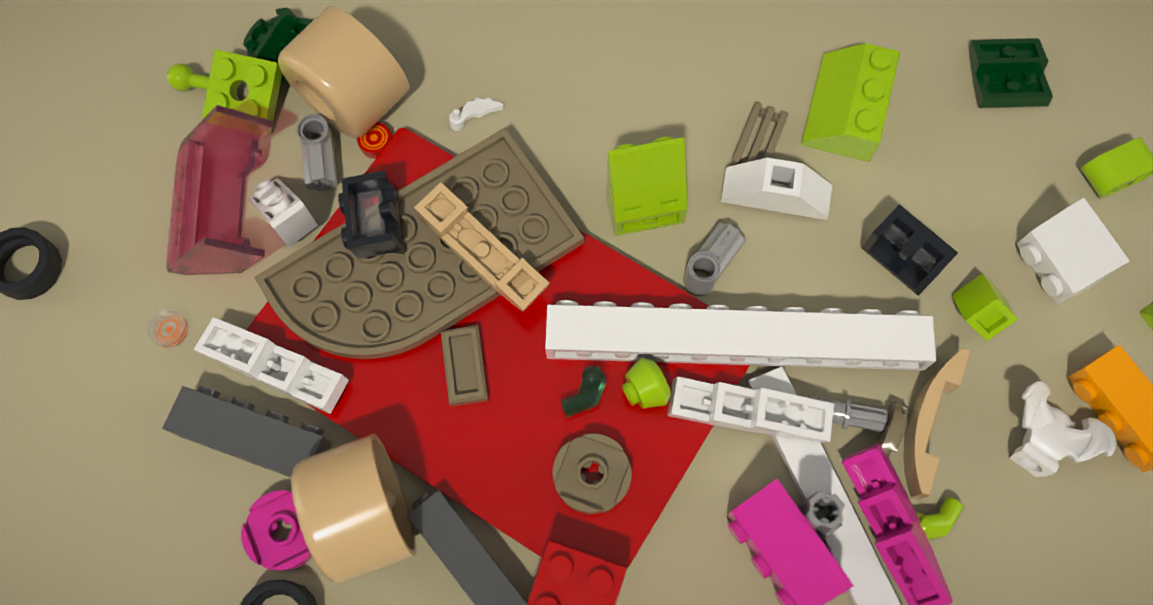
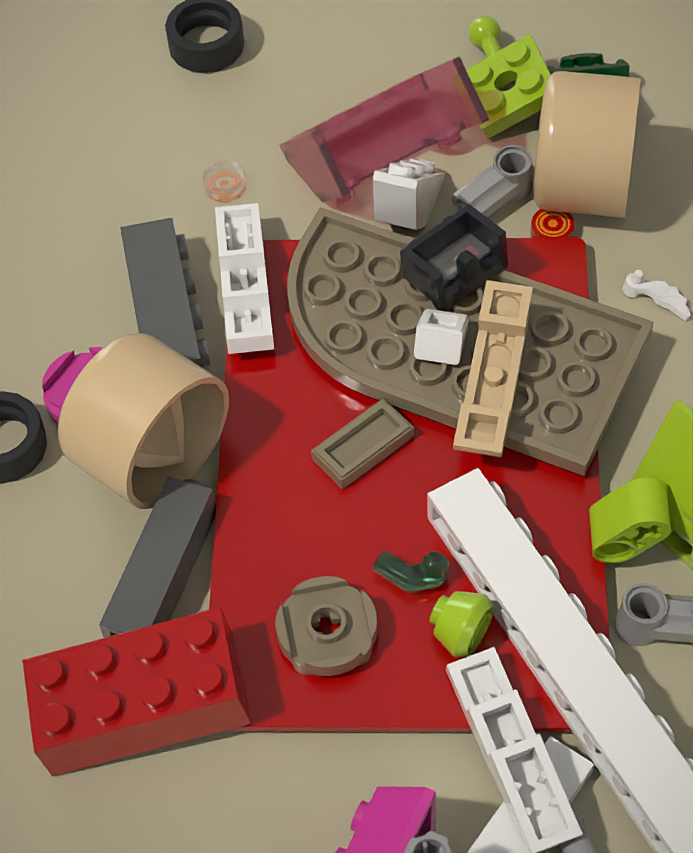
camera: 60 degrees right, 15 degrees down
(424, 263) = (441, 336): none -> white slope
(644, 237) = (630, 520): none -> lime beam

